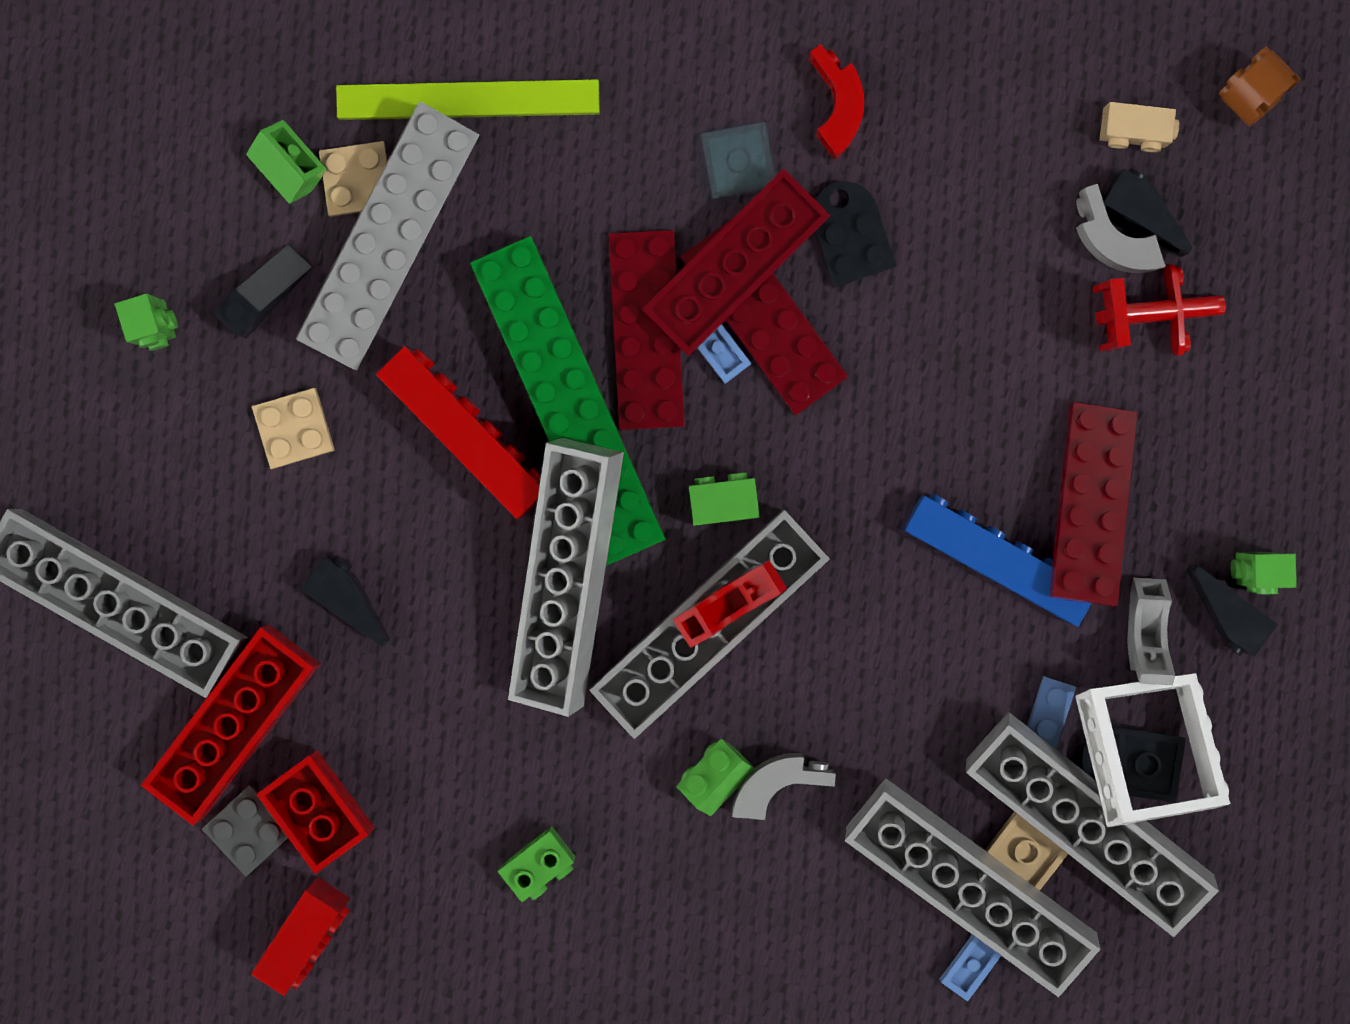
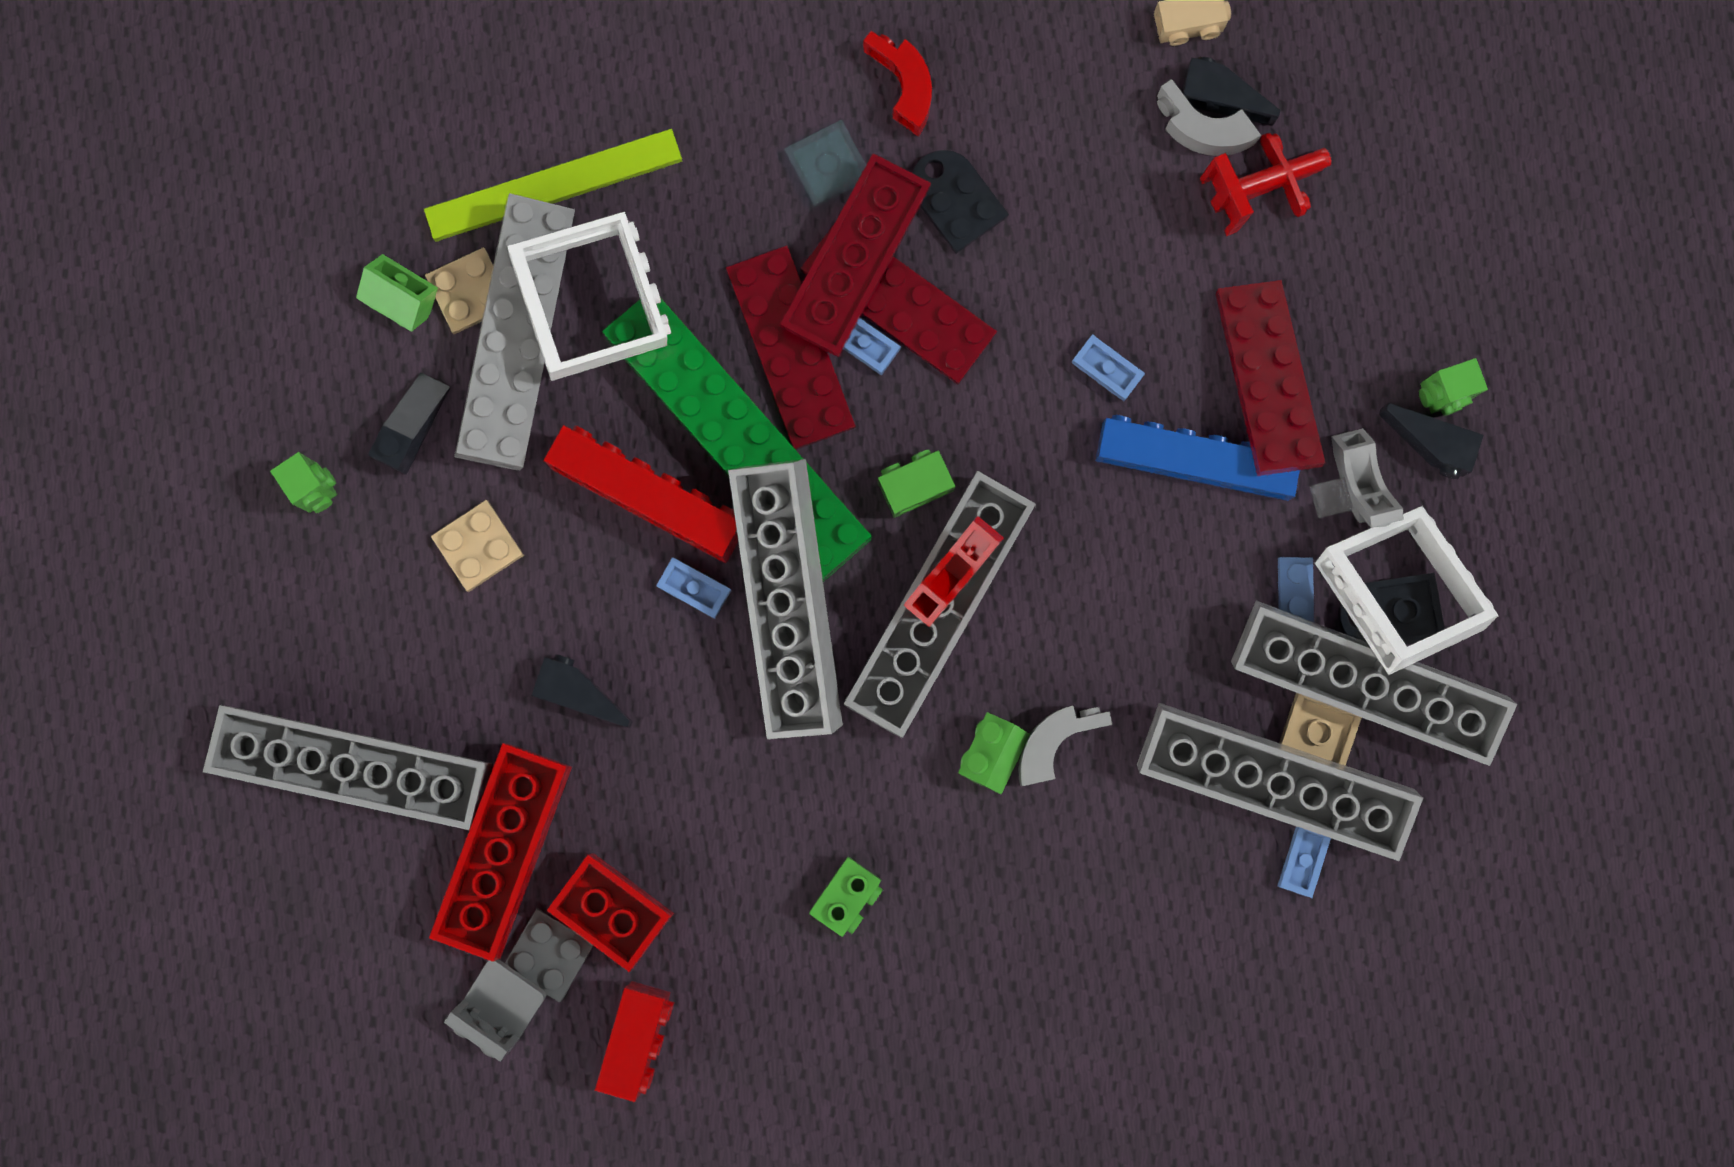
camera: 25 degrees left, 5 degrees down
(184, 867) = (496, 1009): none -> dark grey bracket
(484, 532) = (693, 588): none -> medium blue plate
(523, 213) = (639, 266): none -> white window
(942, 445) = (1108, 368): none -> medium blue plate
(1113, 636) = (1331, 498): none -> clear plate

